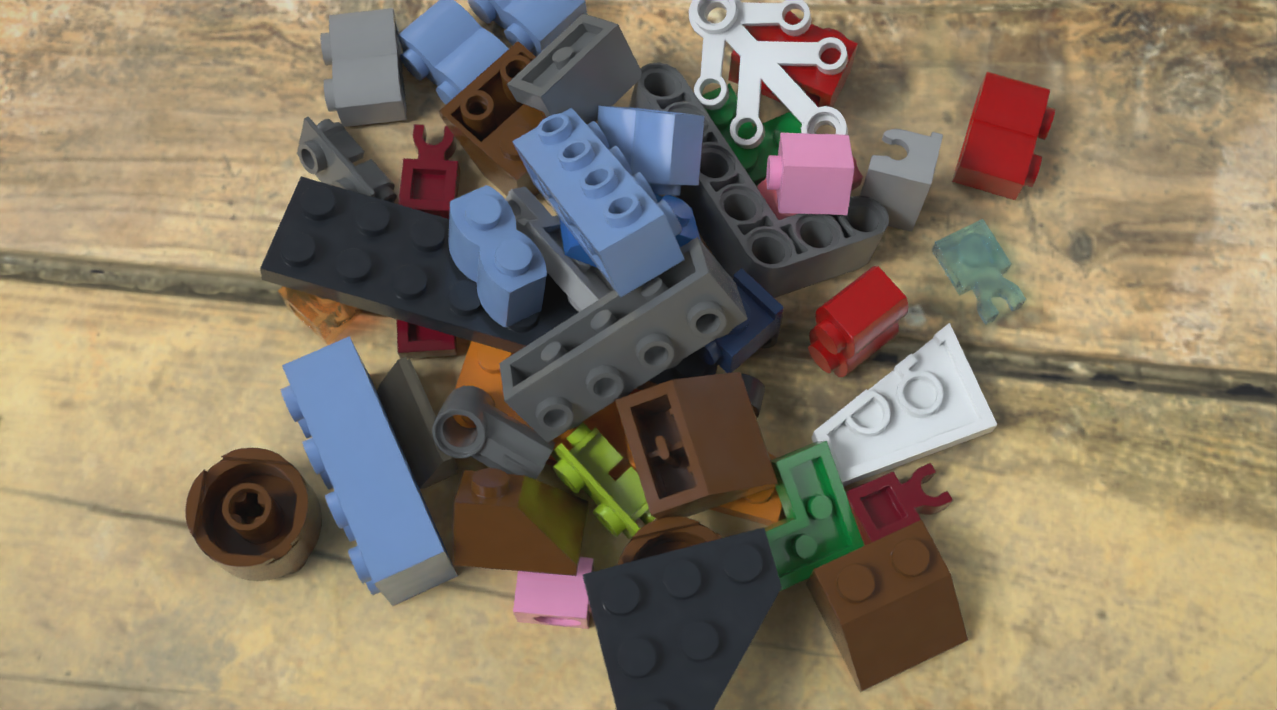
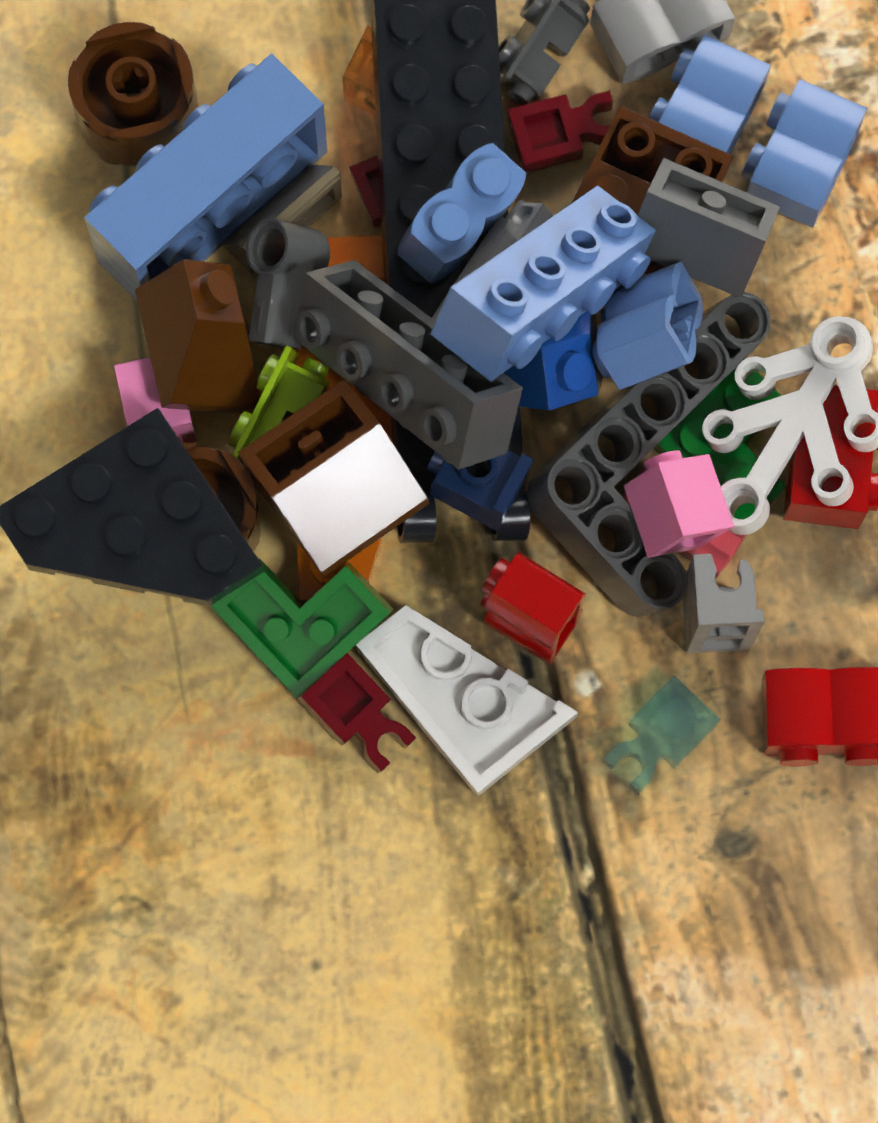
camera: 70 degrees right, 5 degrees up
(889, 605) = (245, 734): reddish brown slope -> none

